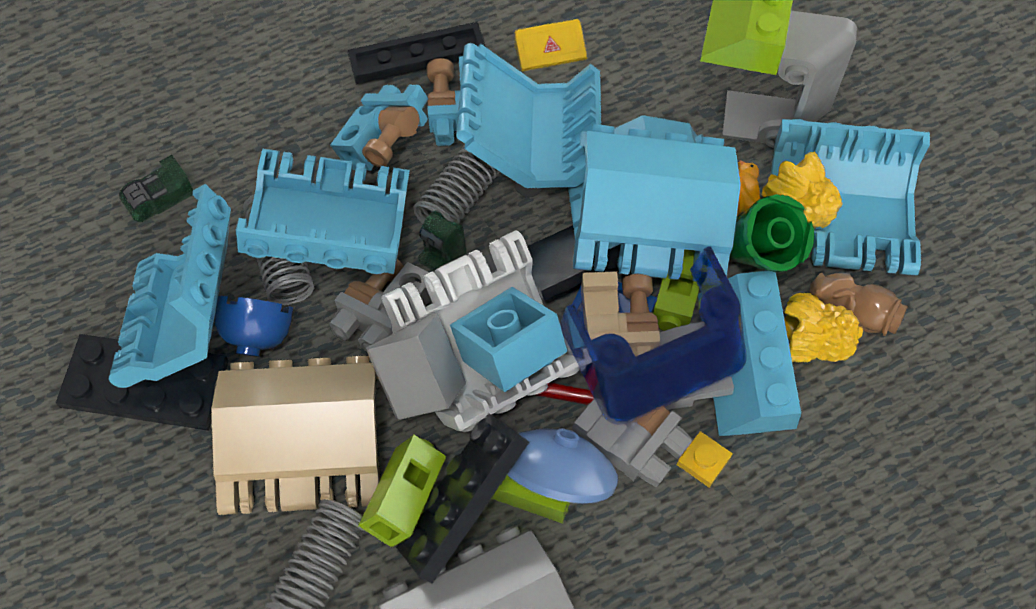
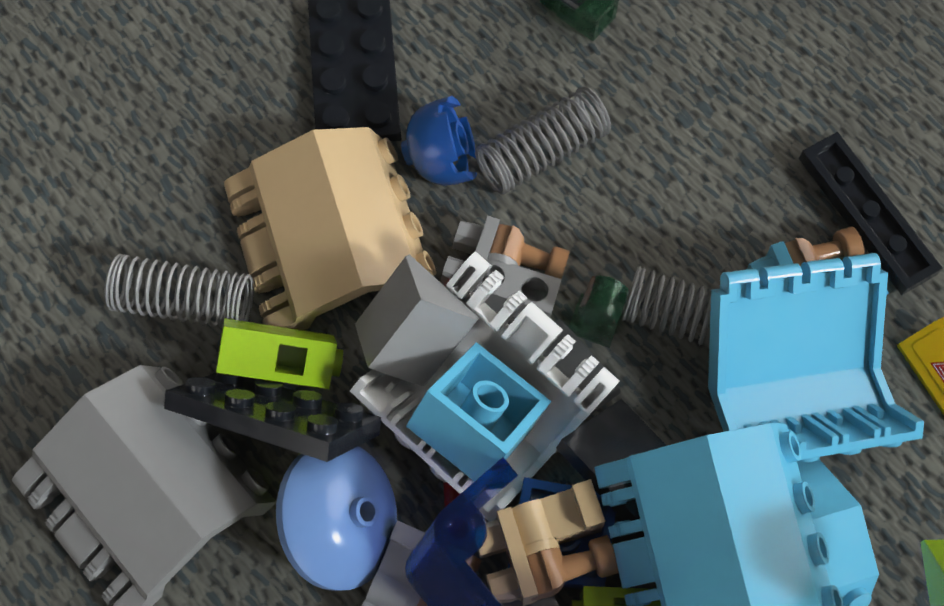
camera: 75 degrees right, 5 degrees up
(175, 299) = (434, 59): medium azure hinge -> none
(324, 218) = (578, 172): medium azure hinge -> none
(379, 124) = (741, 195): medium azure hips -> none

